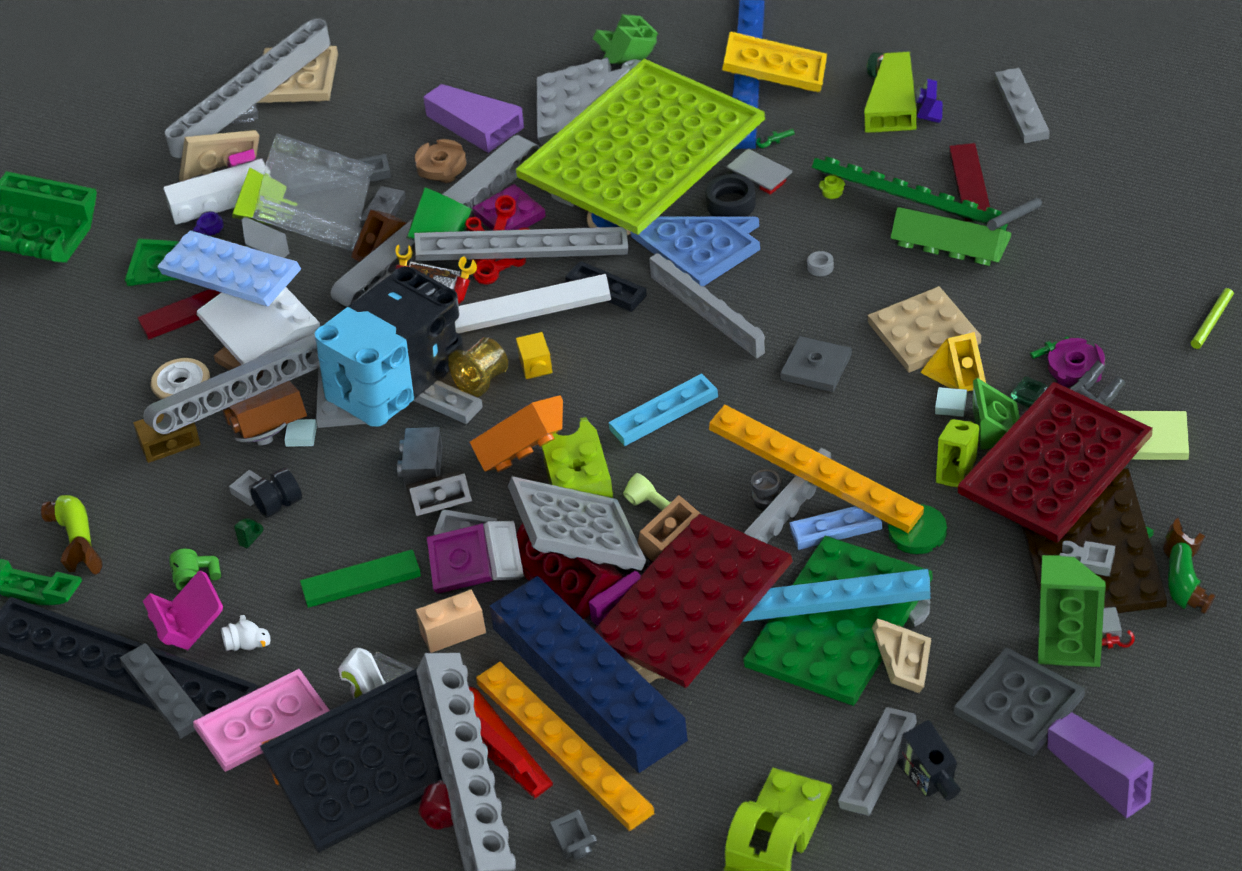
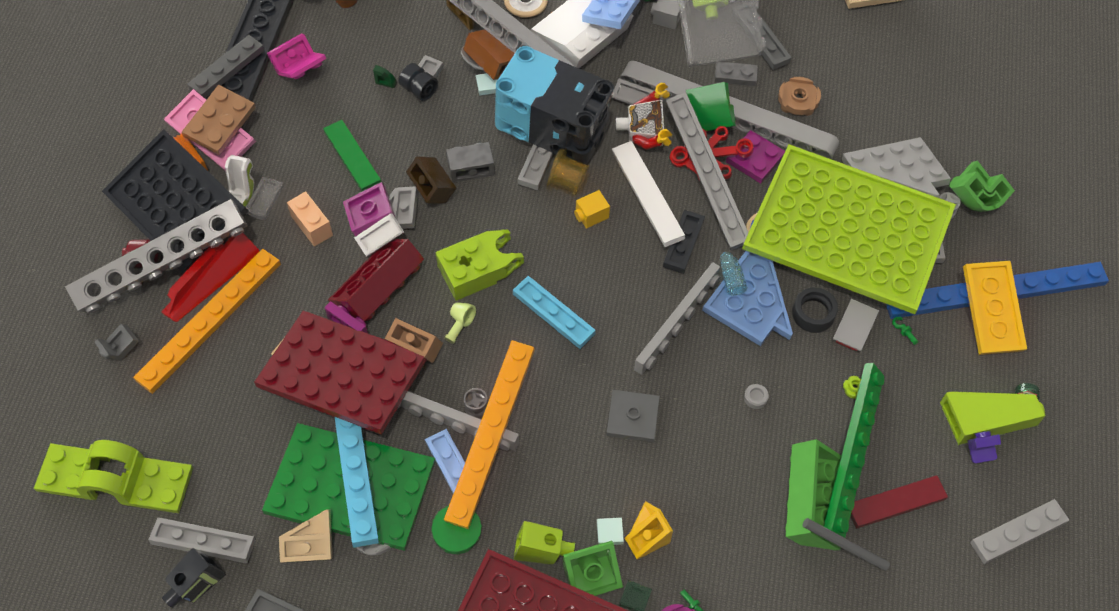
camera: 70 degrees right, 15 degrees up
(186, 564) = (341, 52): bright green piece -> none
(244, 635) = (286, 100): white animal -> none
(259, 695) = (218, 119): none -> medium nougat plate
(376, 230) = (700, 72): reddish brown slope -> none
(474, 116) = (854, 106): medium lavender slope -> none
(518, 434) = (490, 215): orange slope -> none
(576, 524) = (395, 271): light grey plate -> none
(589, 674) = (266, 318): dark blue brick -> none
(671, 243) = (732, 274): none -> clear light blue hinge
(920, 326) = (695, 495): tan plate -> none

